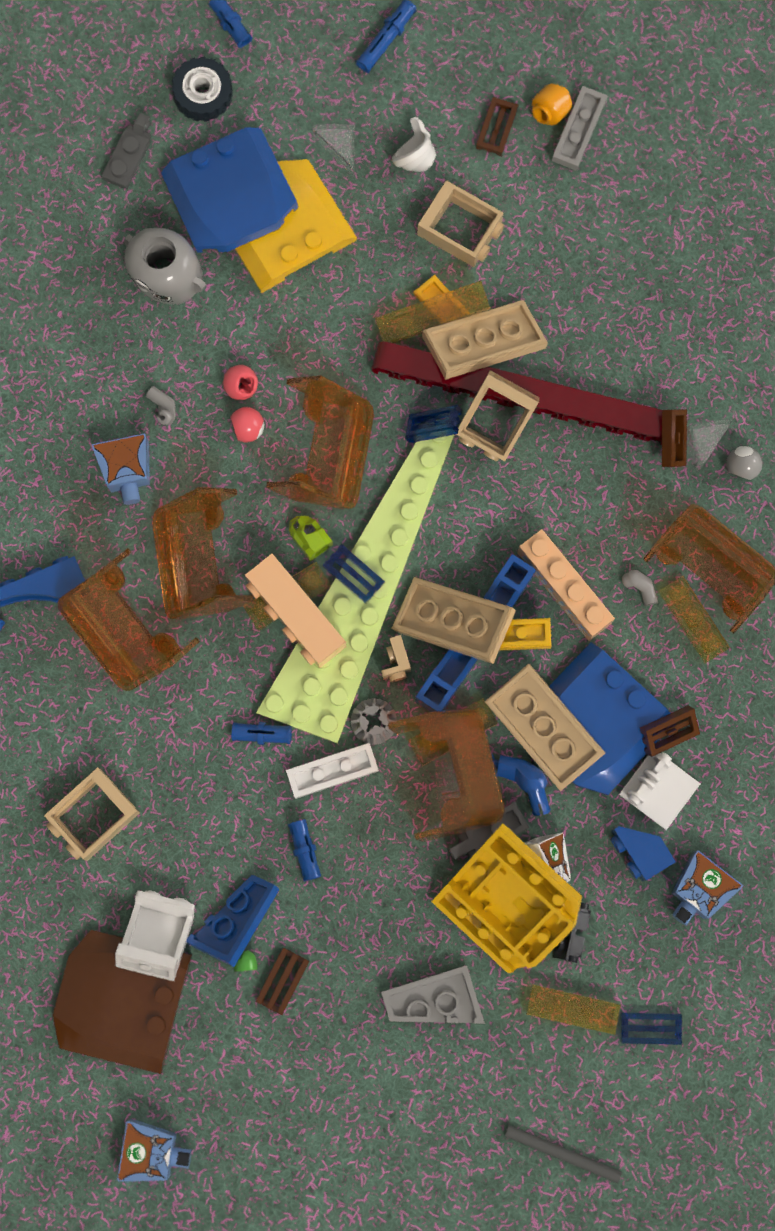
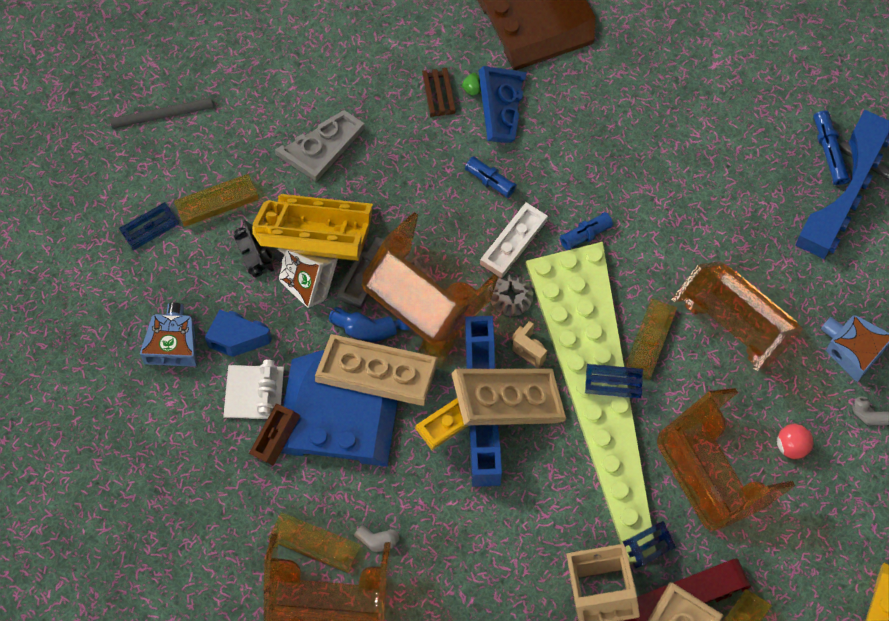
camera: 145 degrees right, 15 degrees down
(58, 828) = (651, 122): tan window -> none
(115, 631) = (747, 223): clear orange windscreen -> none
(155, 935) = (547, 56): white panel -> none
(232, 378) = (833, 463): coral piece -> none
(295, 611) = (634, 319): light nougat brick -> none
(309, 536) = (672, 392): lime rock -> none
(565, 585) = (440, 490): light nougat brick -> none

